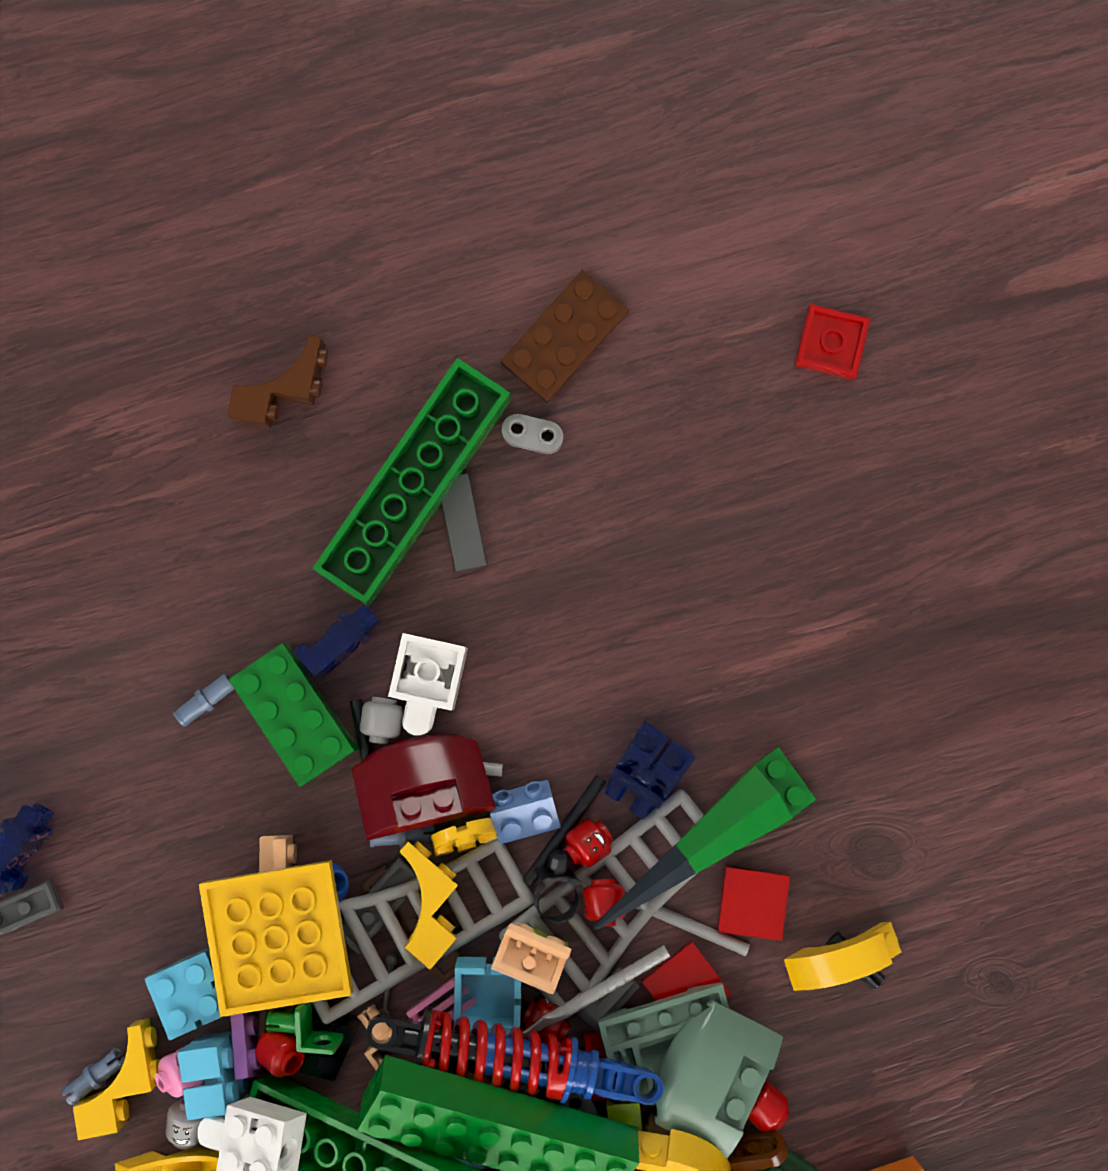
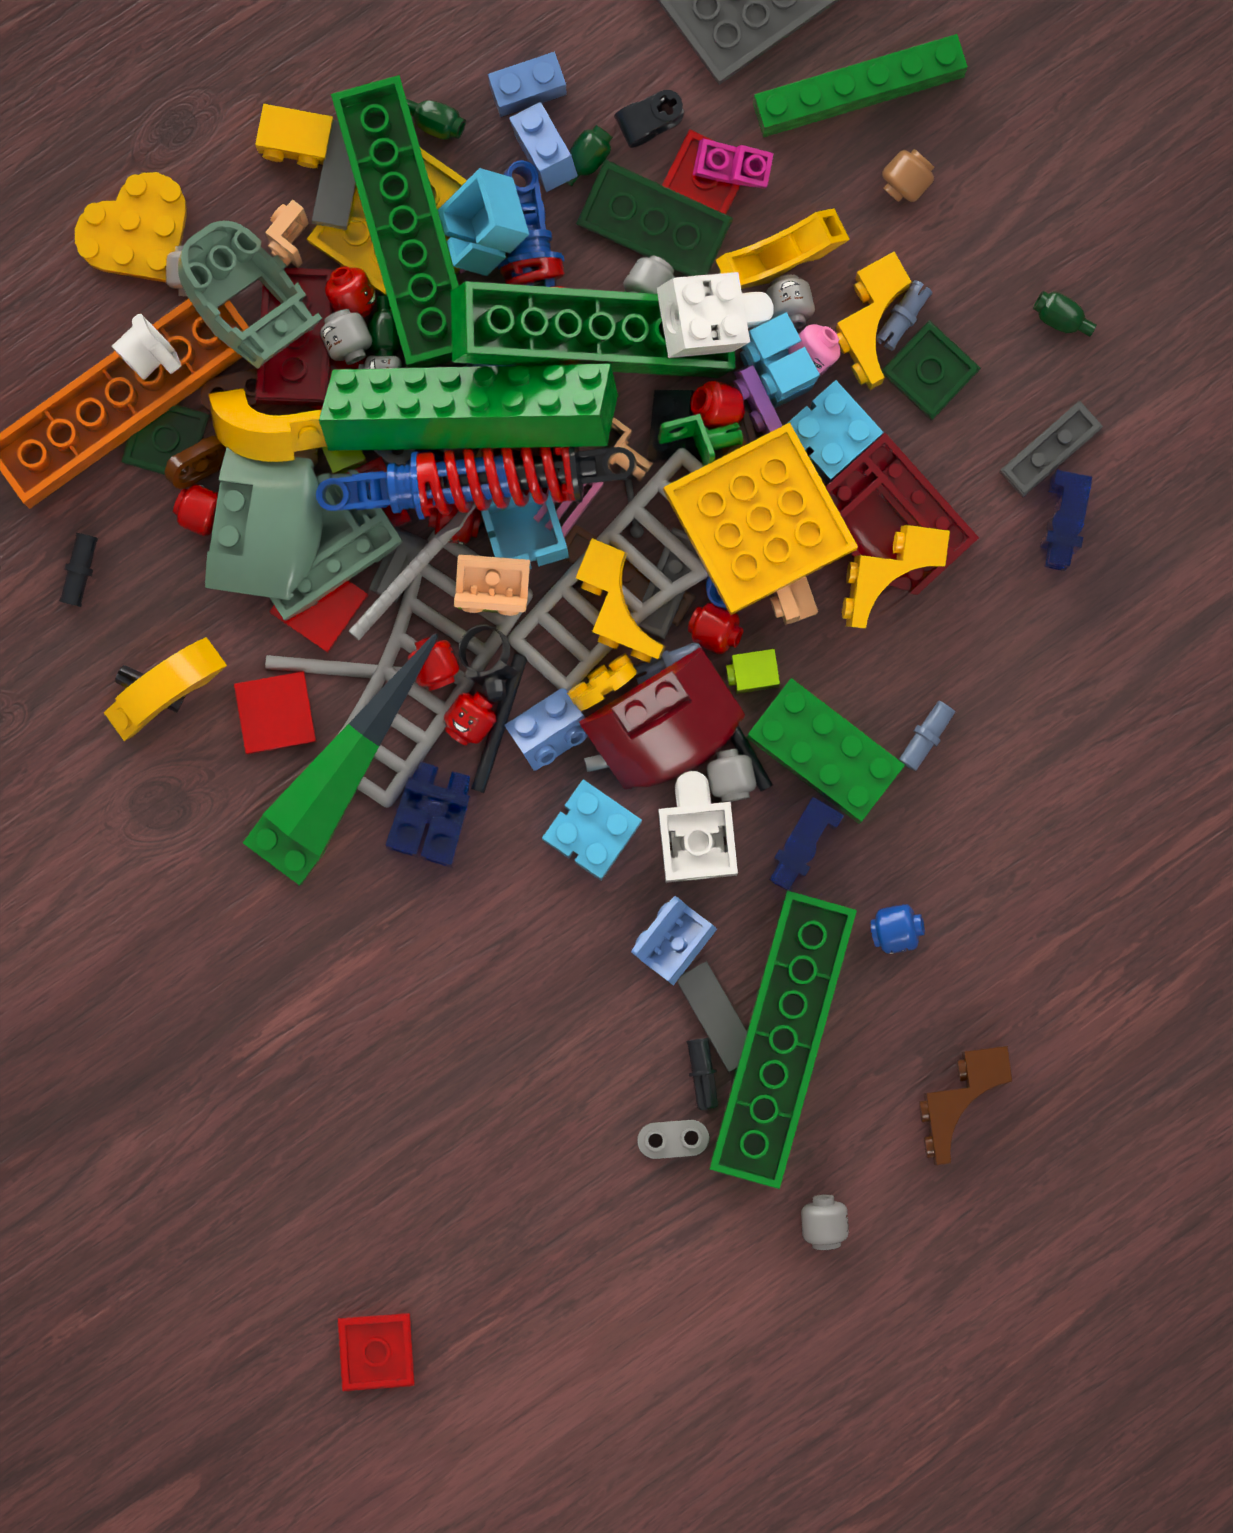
camera: 165 degrees right, 0 degrees up
(89, 1018) = (930, 370): none -> dark green tile
(159, 897) = (886, 492): none -> dark red slope
(200, 854) = (871, 575): none -> yellow arch
(286, 544) = (897, 929): none -> blue head
(331, 803) = (753, 671): none -> lime brick
(351, 852) = (715, 628): none -> red head
(430, 323) = (825, 1222): none -> light grey head
(477, 596) = (673, 940): none -> medium blue bracket
(489, 479) = (702, 1073): none -> black axle
(514, 712) = (593, 829): none -> medium azure piece
(564, 336) = (673, 1260): reddish brown plate -> none
(886, 1087) = (78, 569): none -> black pin

